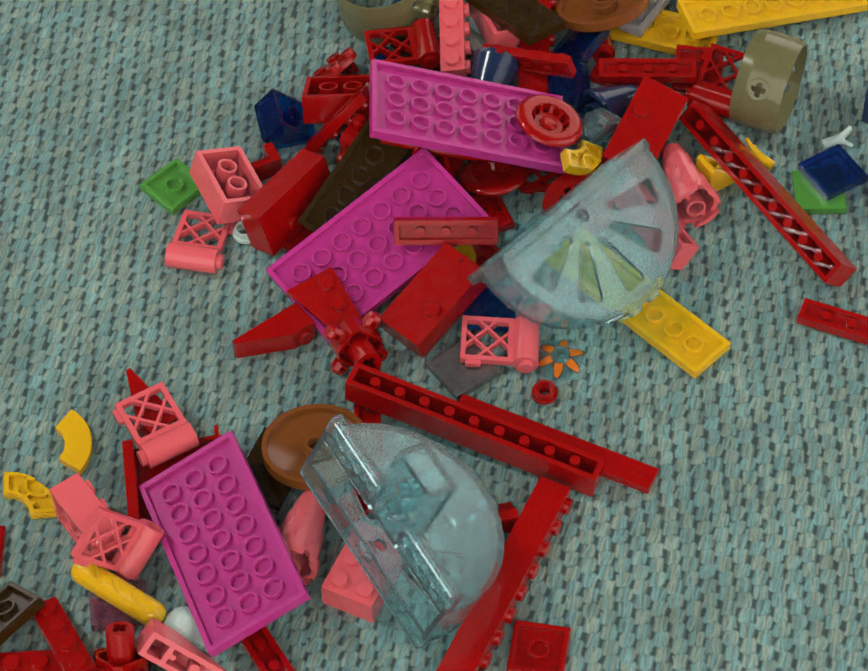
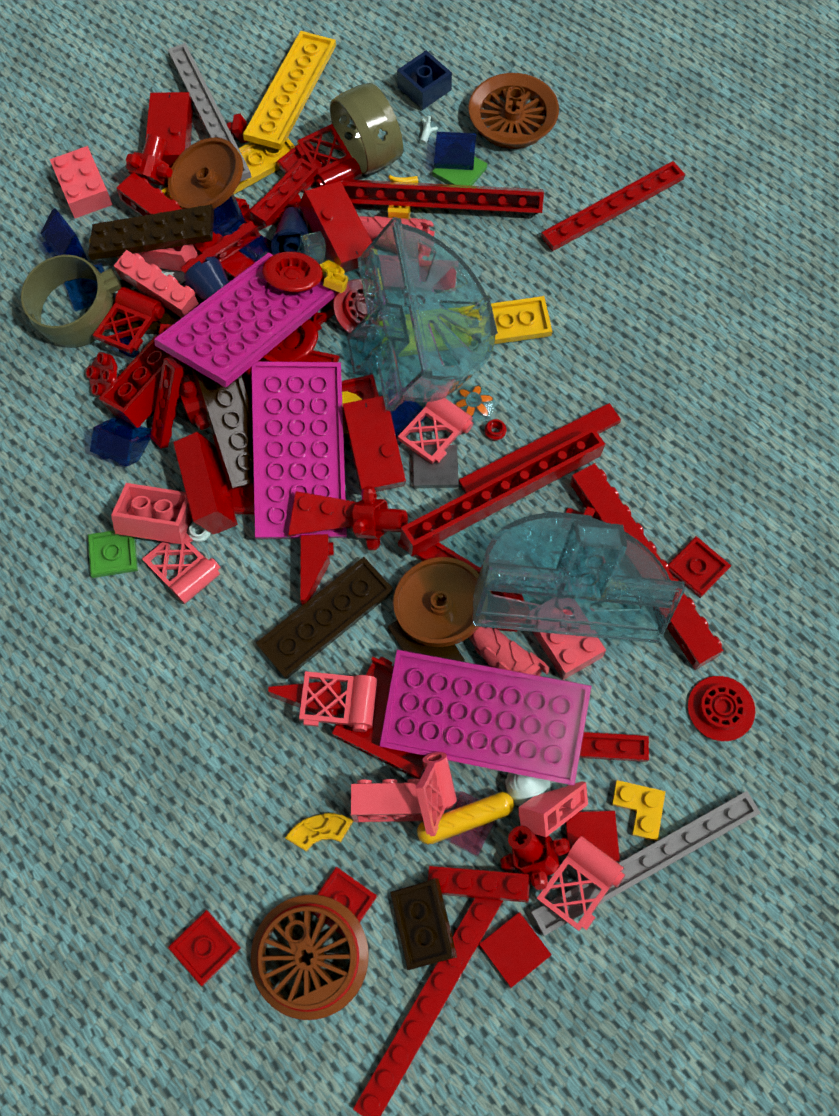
camera: 55 degrees left, 15 degrees up
(77, 441) = (296, 765): yellow tile -> none
(235, 374) = (324, 617): none -> dark brown plate
(269, 165) = (150, 473): red panel -> none
(446, 229) = (333, 396): red plate -> none

